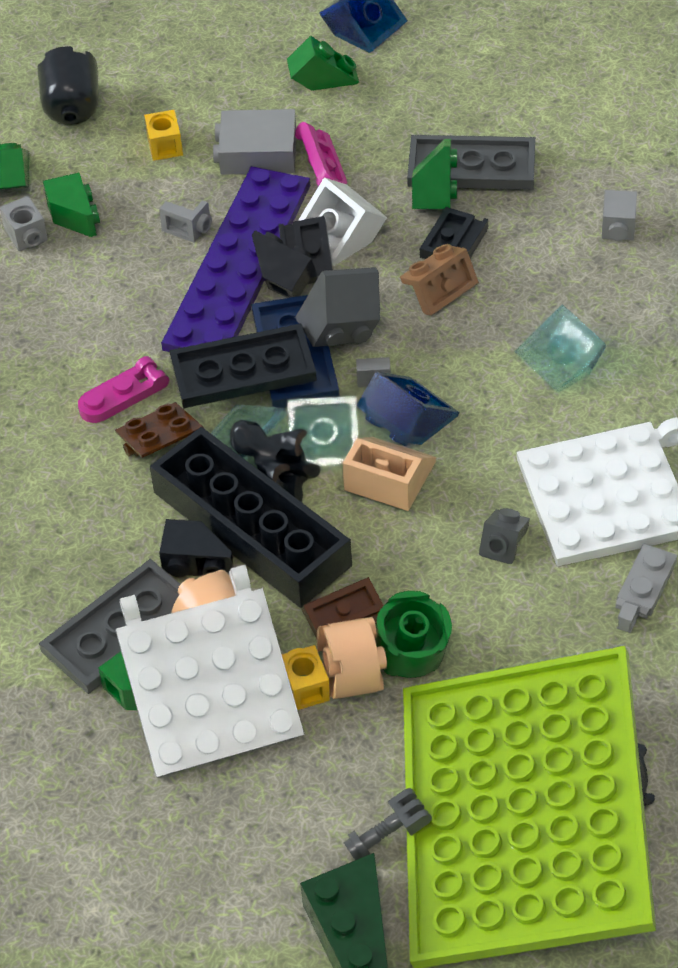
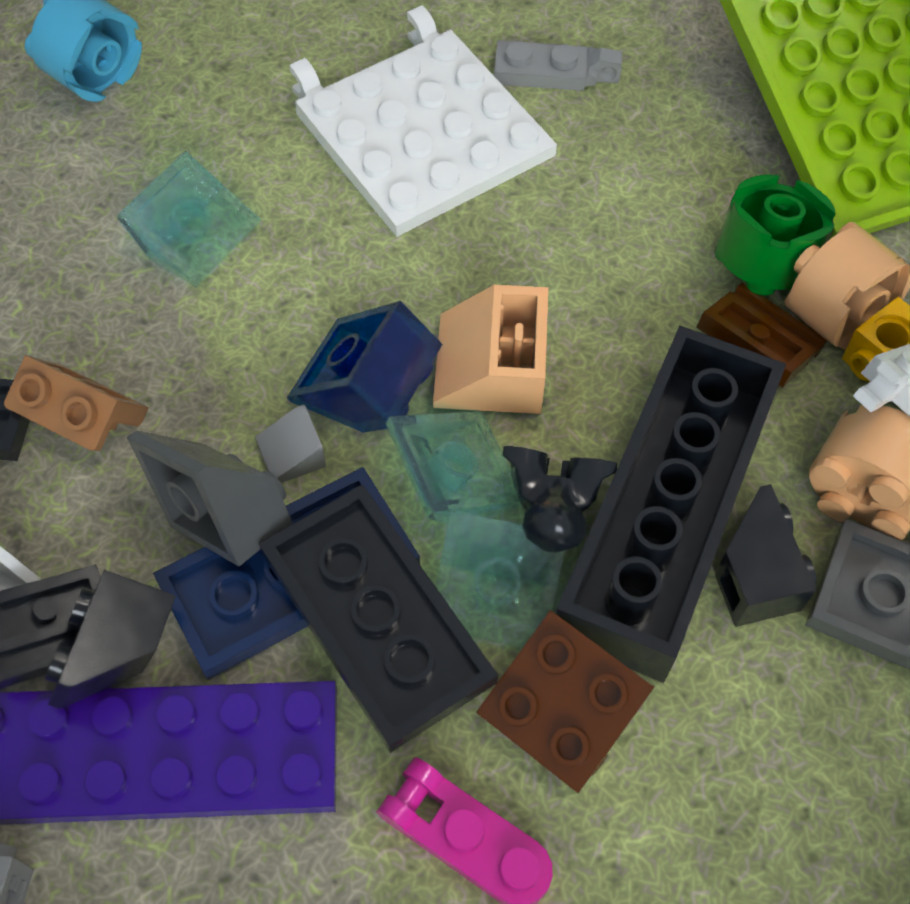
camera: 115 degrees left, 10 degrees up
(502, 534) = (540, 202): dark grey bracket -> none

